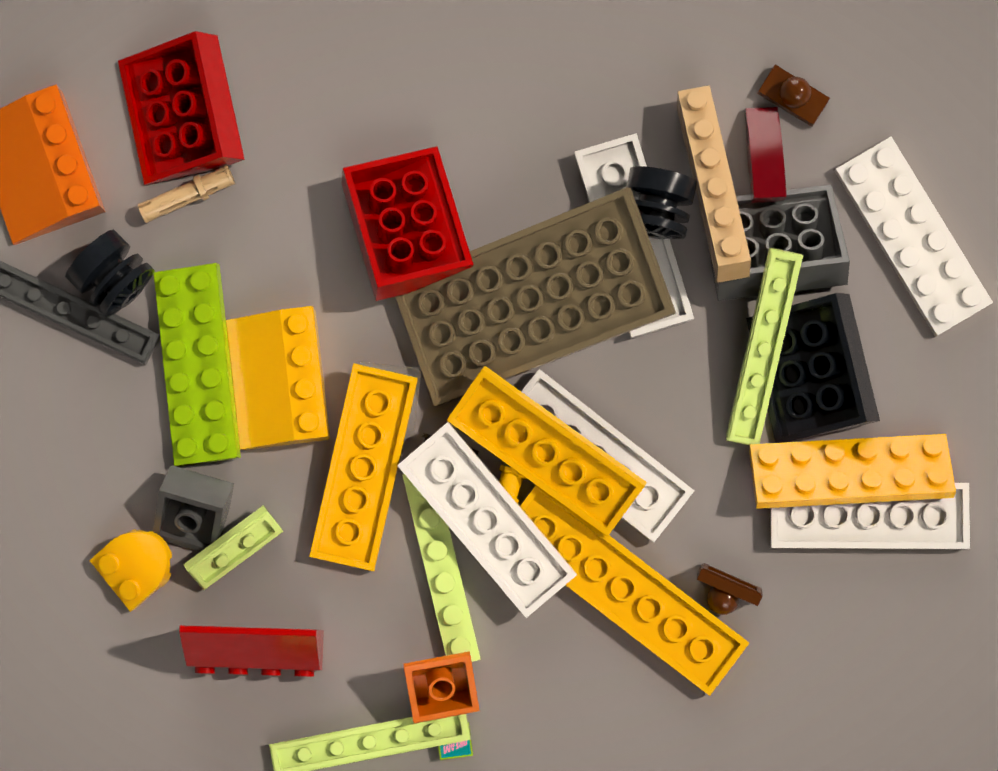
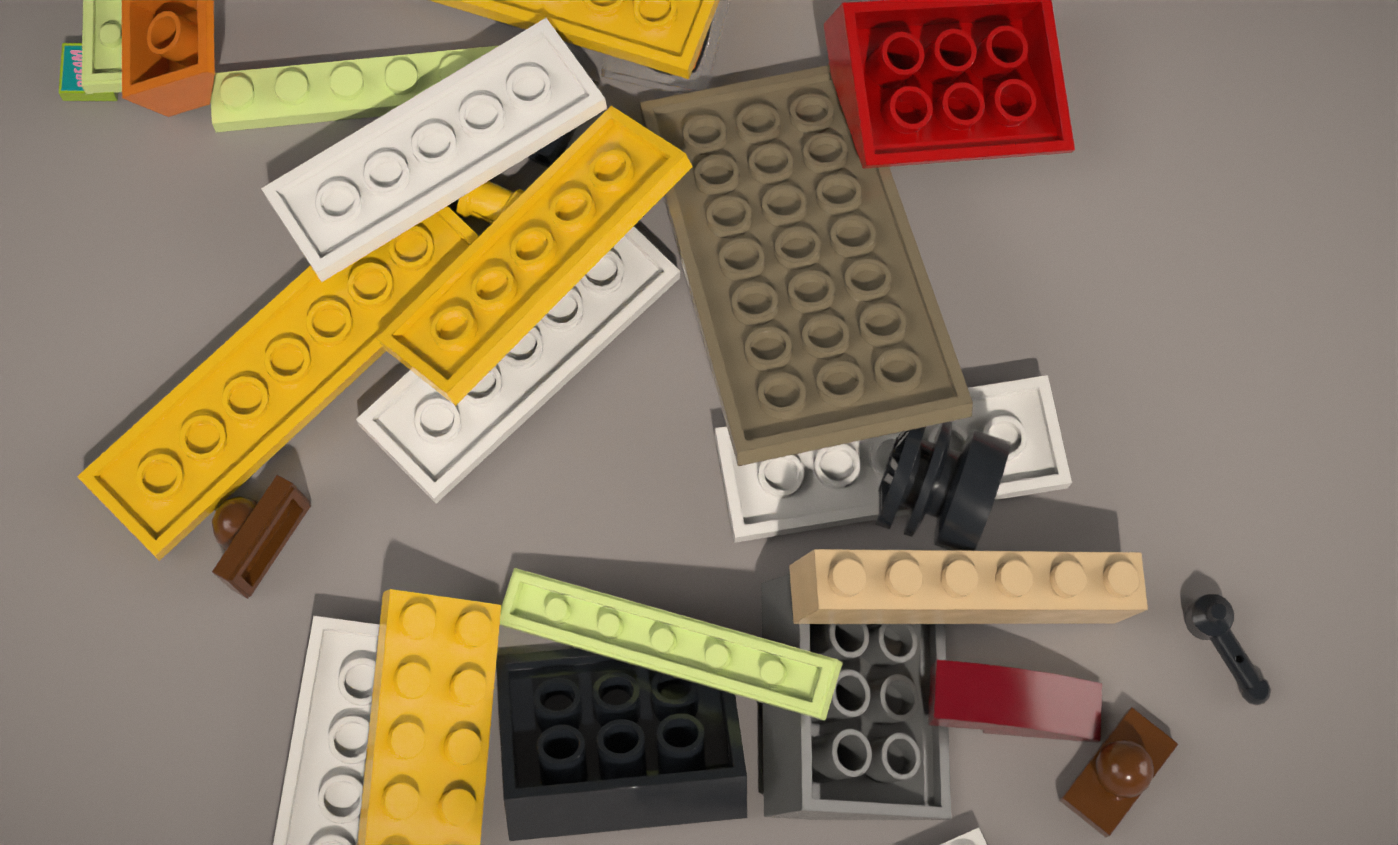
camera: 90 degrees right, 10 degrees down
(702, 49) = (1211, 620): none -> black piece

